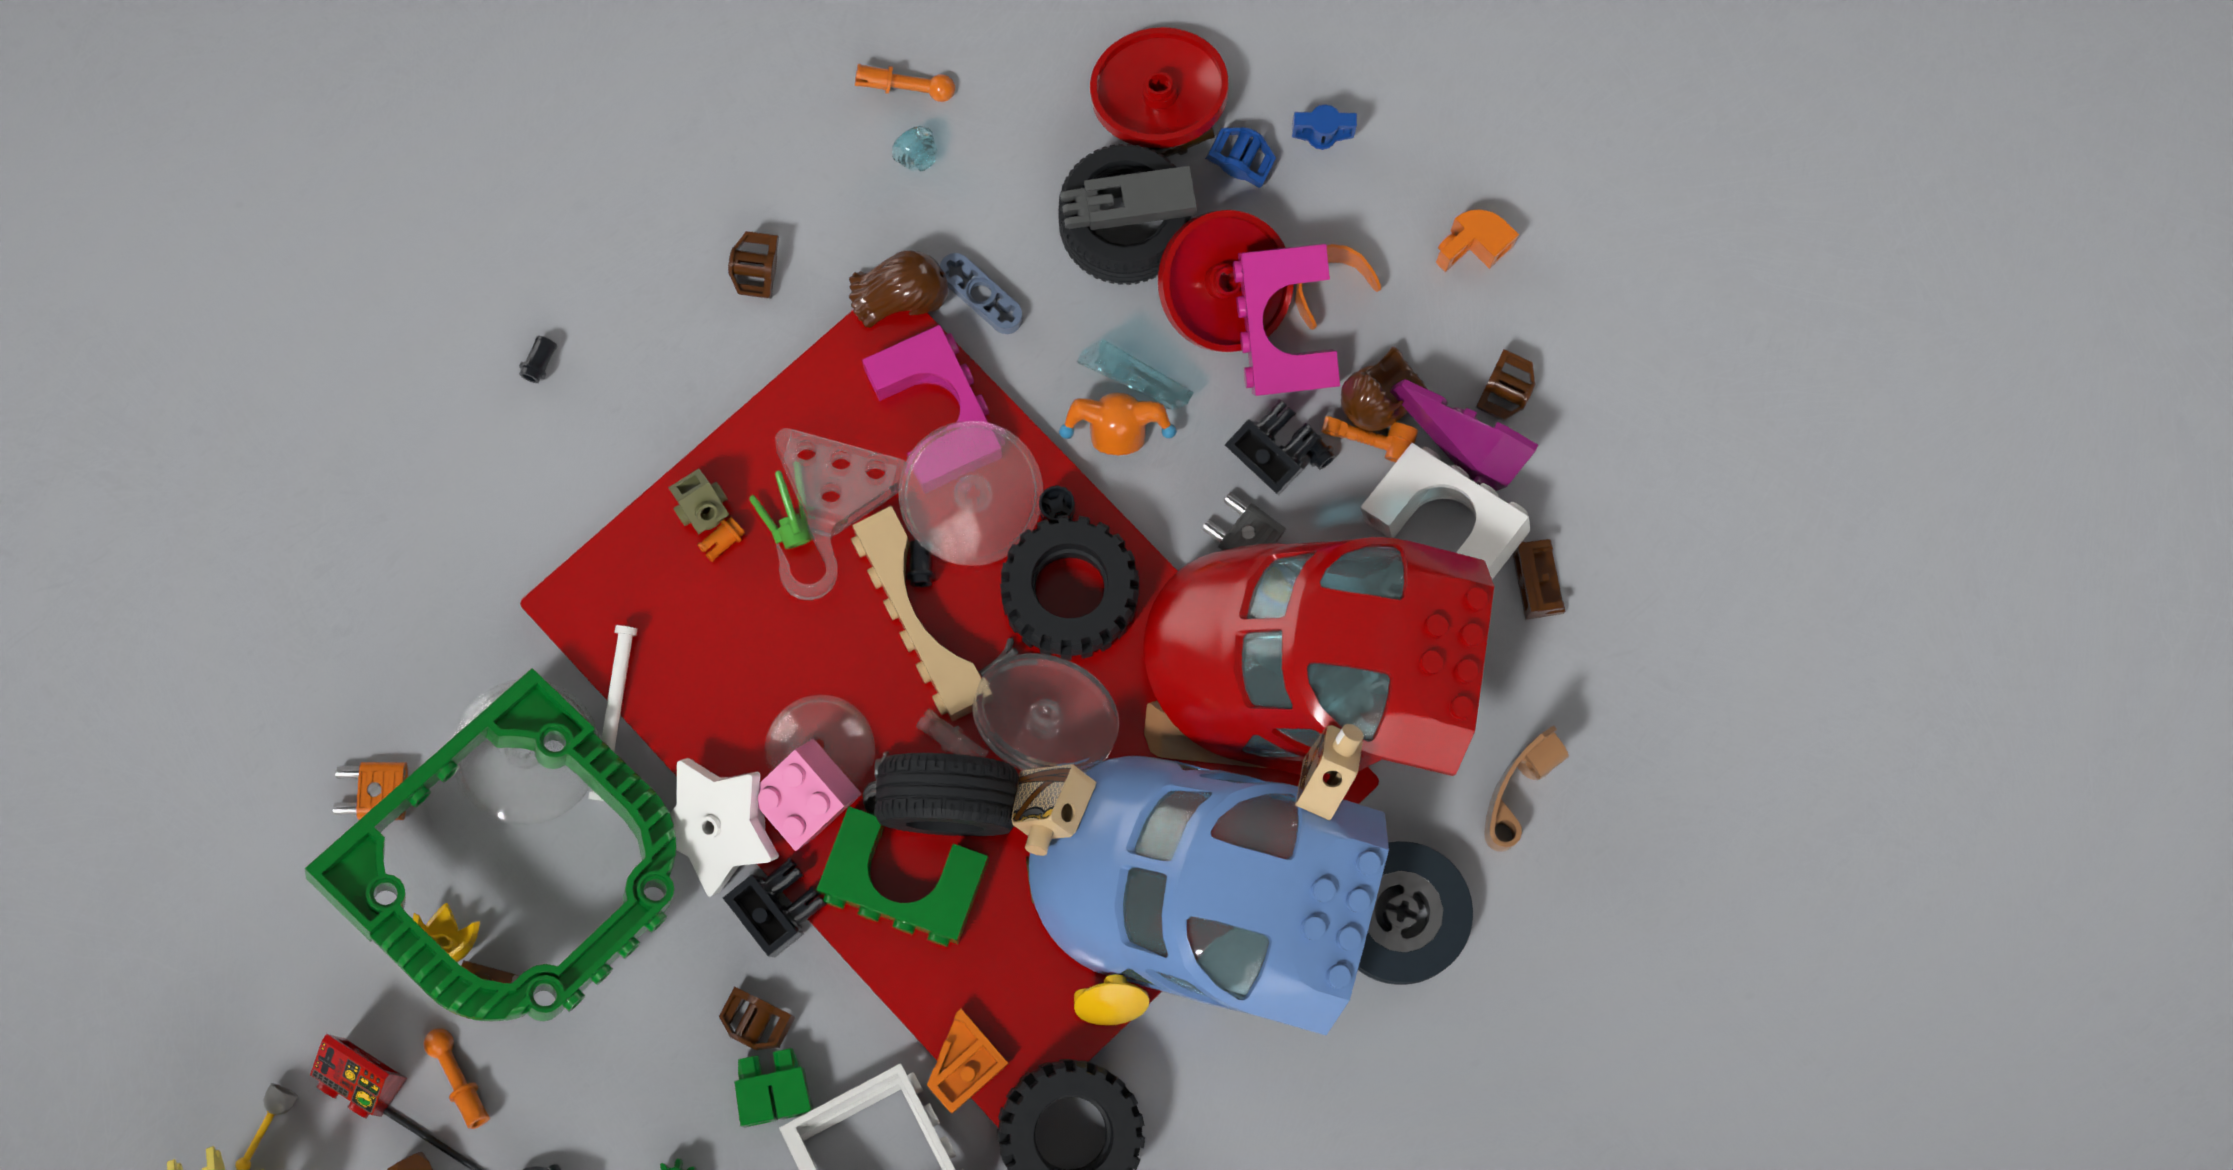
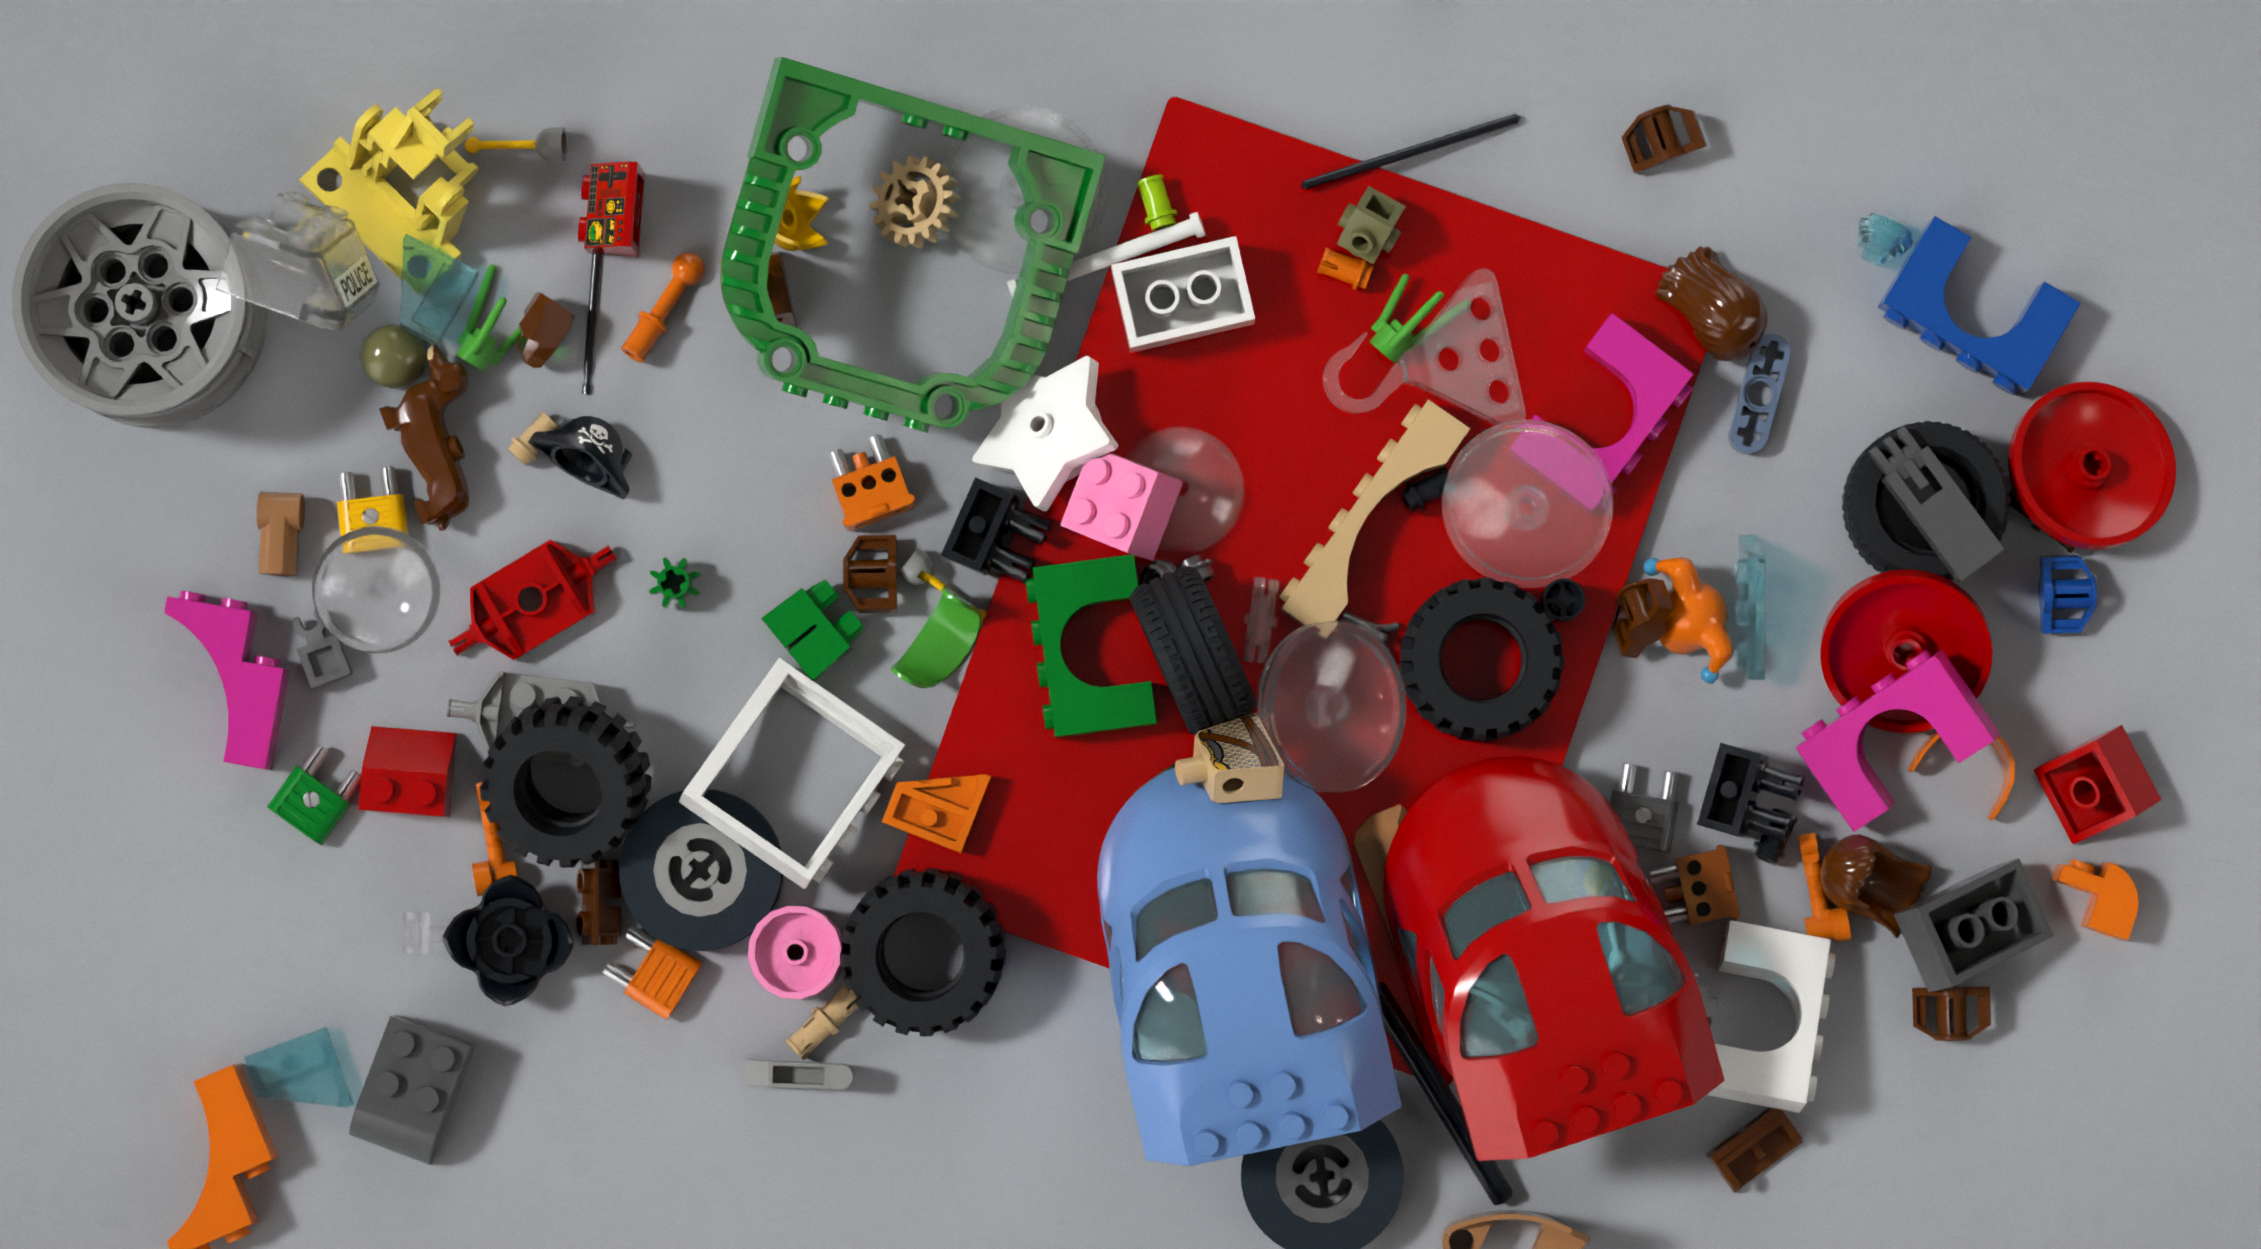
camera: 65 degrees right, 10 degrees up
(374, 784) = (906, 65): orange piece -> none
(490, 821) = (930, 205): none -> tan gear
(592, 653) = (1156, 203): none -> lime pin
(661, 450) = (1410, 151): none -> black axle
(671, 667) = (1183, 294): none -> white brick
(701, 991) = (877, 503): none -> orange piece
(772, 982) = (920, 569): none -> light grey hinge
(836, 992) = (941, 643): none -> bright green piece
(940, 87) = (1947, 162): orange pin -> none
(976, 147) = (1918, 301): none -> blue arch
(1104, 454) = (1641, 615): none -> reddish brown piece
(1111, 1002) = (1074, 925): yellow dish -> none
(1325, 504) = (1718, 881): none -> dark orange piece
(1326, 122) = (2145, 666): blue piece -> none
(1333, 753) = (1427, 1025): tan torso -> none
(1393, 202) = (2097, 785): none -> red slope
(1418, 788) = (1440, 1095): none -> black axle
(1453, 337) = (1973, 925): none -> dark grey brick
(1482, 451) = (1859, 1023): magenta wedge -> none

